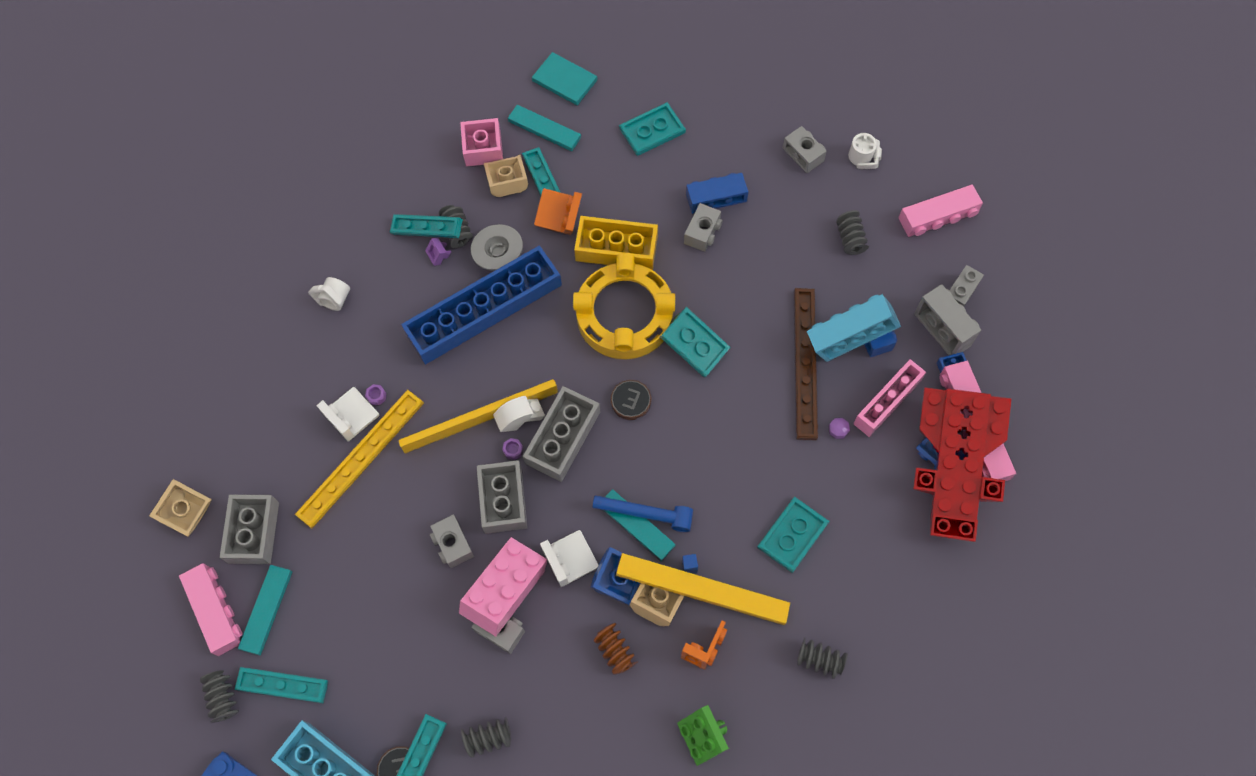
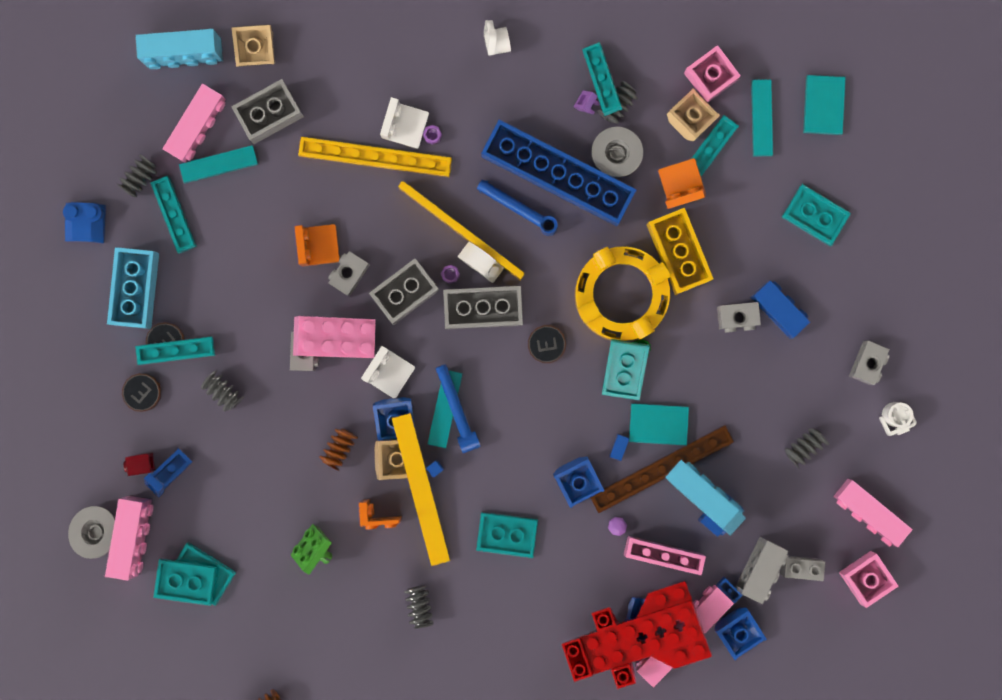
camera: 60 degrees right, 20 degrees up
(130, 578) = (179, 48): none -> medium azure brick
(405, 556) = (317, 245): none -> orange bracket
(493, 354) = (517, 207): none -> blue piece
(762, 343) = (658, 424): none -> teal tile
(764, 387) = (619, 447): none -> blue piece
(776, 438) = (577, 481): none -> blue slope
(997, 372) = (739, 632): none -> blue slope
(1000, 241) = (868, 579): none -> bright pink brick

